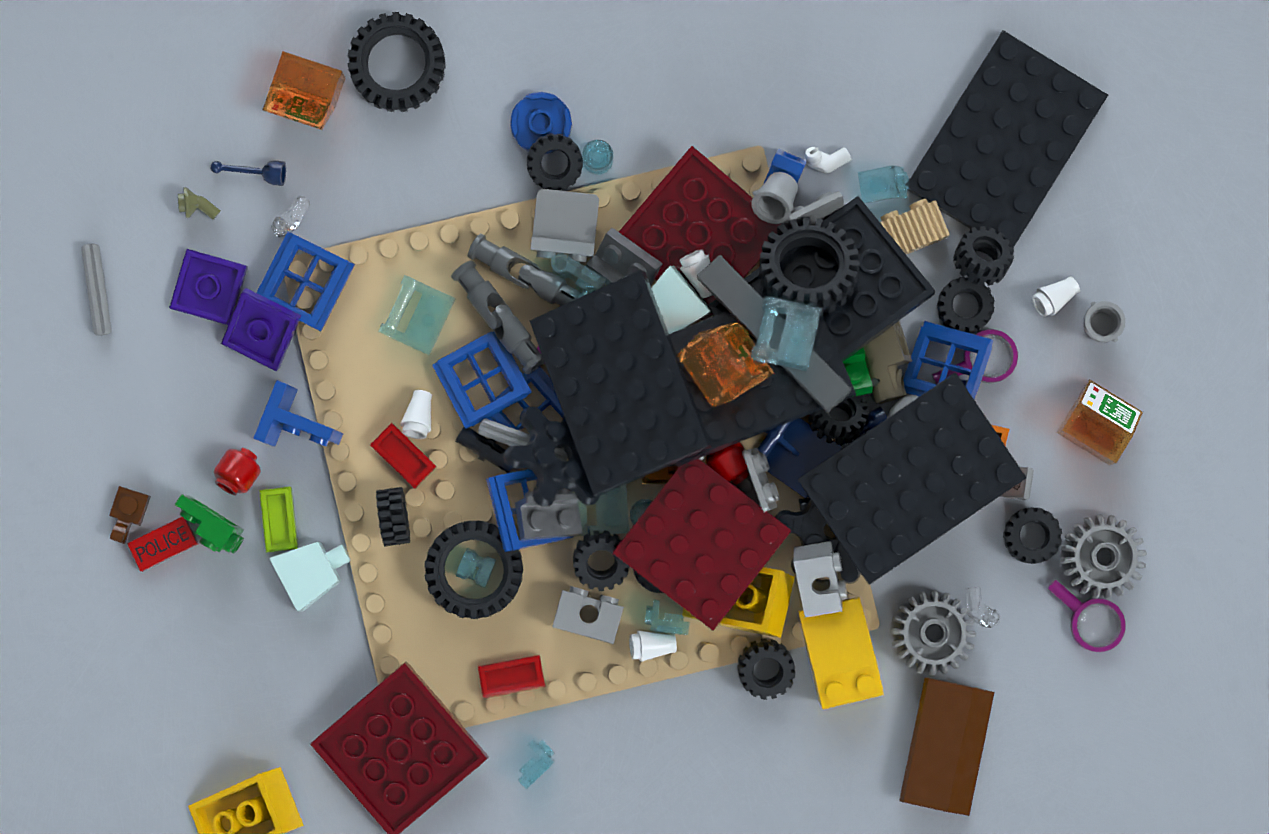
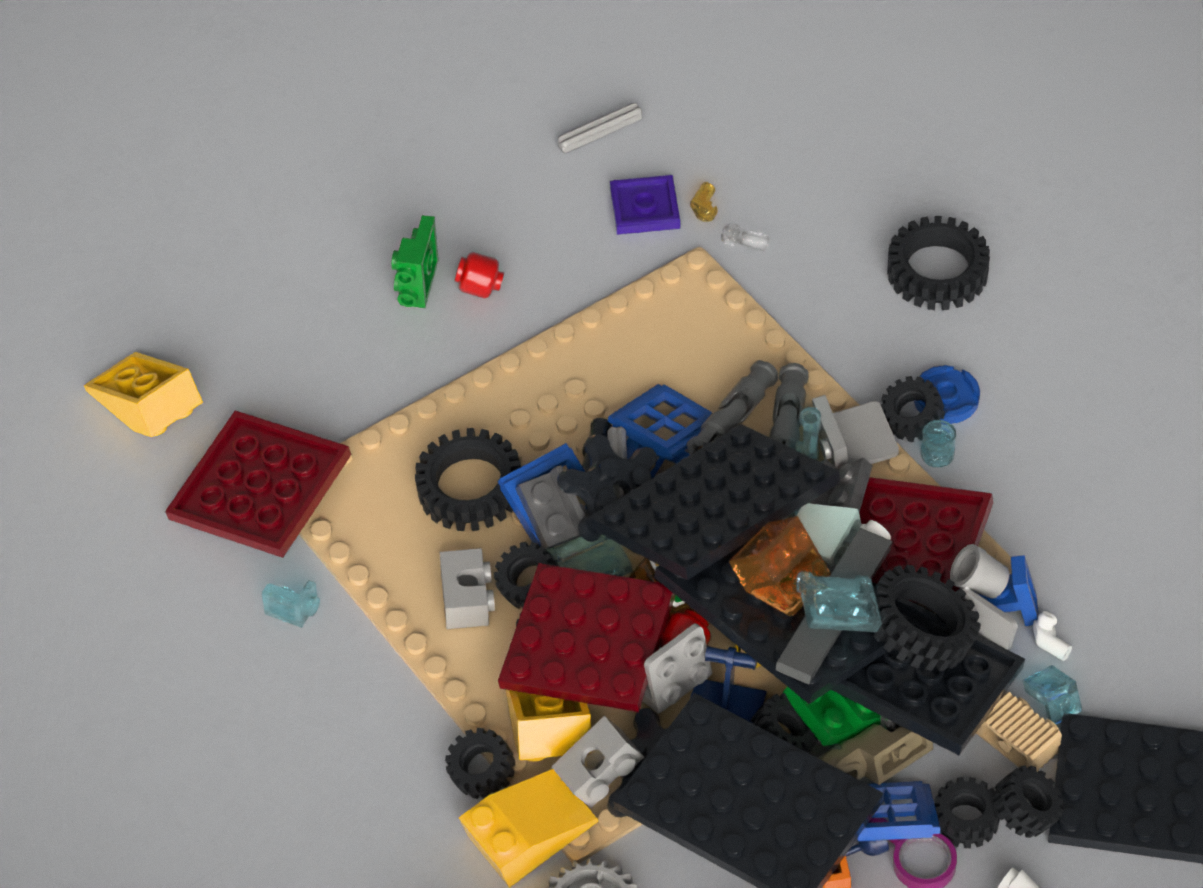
camera: 70 degrees right, 35 degrees down
(129, 509) = (402, 215): reddish brown plate -> none
(162, 543) = (375, 247): red tile -> none
(189, 202) = (716, 160): olive plate -> none
(234, 238) = (701, 203): none -> clear yellow arm
(261, 329) = (624, 246): dark purple tile -> none
(273, 172) = (782, 207): dark blue hinge -> none
(278, 418) = (546, 288): blue bracket -> none
(278, 519) = (447, 327): lime tile -> none
(304, 91) = (869, 201): clear orange slope -> none
(309, 572) = (404, 360): light aqua torso -> none
(329, 293) = (685, 284): blue piece -> none
(393, 516) = (491, 392): black tyre -> none
(403, 455) = (556, 391): red tile -> none
(417, 417) = (600, 385): white cone -> none
(427, 318) = (701, 366): clear light blue plate -> none
(469, 564) = (471, 478): clear light blue wheel -> none
(511, 676) = (374, 552): red tile -> none
(651, 645) = (458, 650): white cone -> none
(670, 624) = (488, 653): clear light blue bracket -> none

